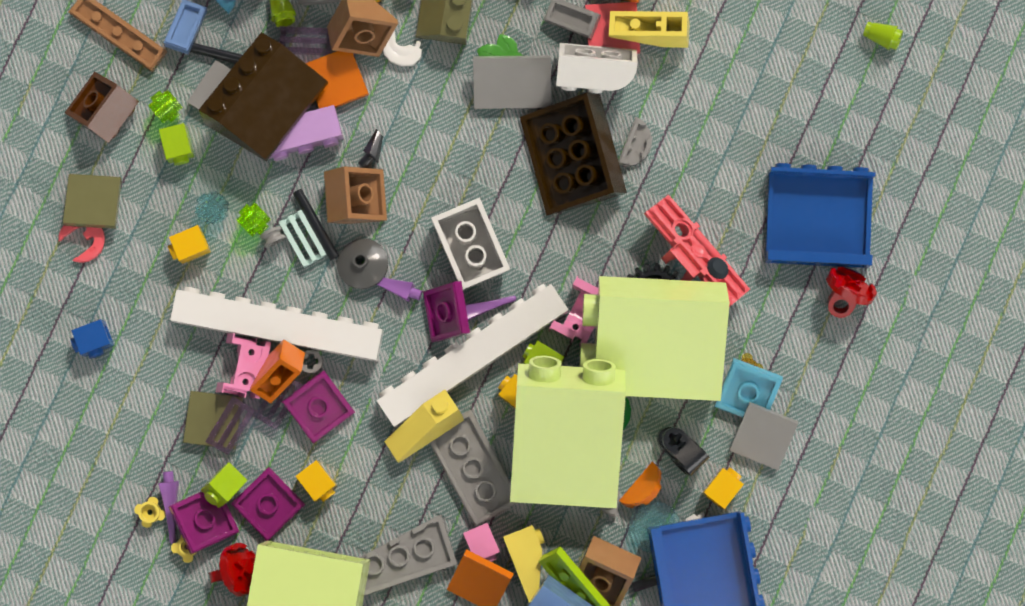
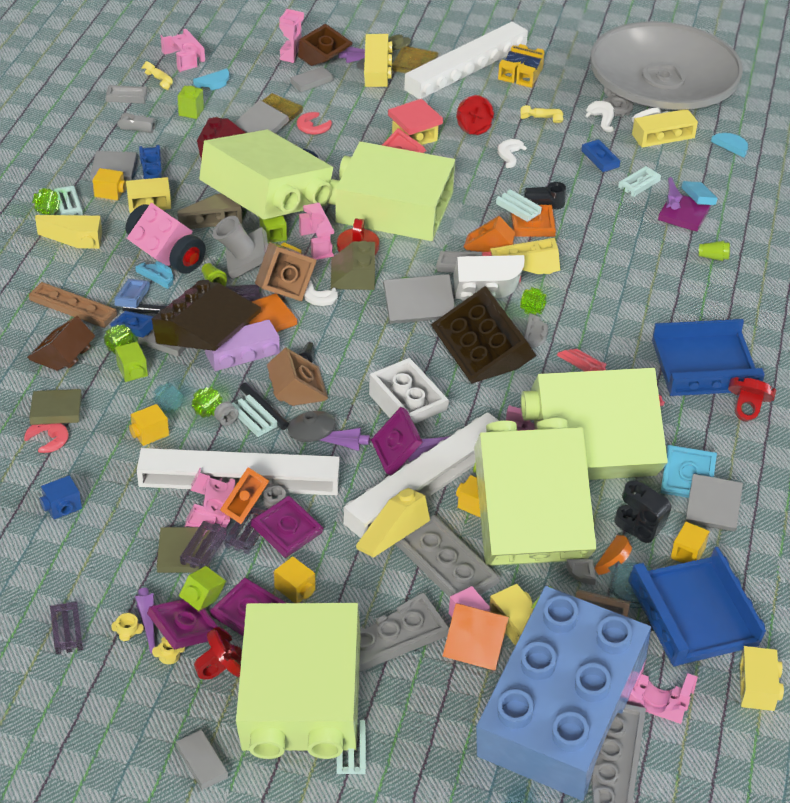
camera: 10 degrees left, 40 degrees down
(102, 503) = (68, 644): none -> clear purple tile
(183, 85) = (139, 324): none -> blue plate
(643, 102) = (533, 301): none -> clear neon green gear

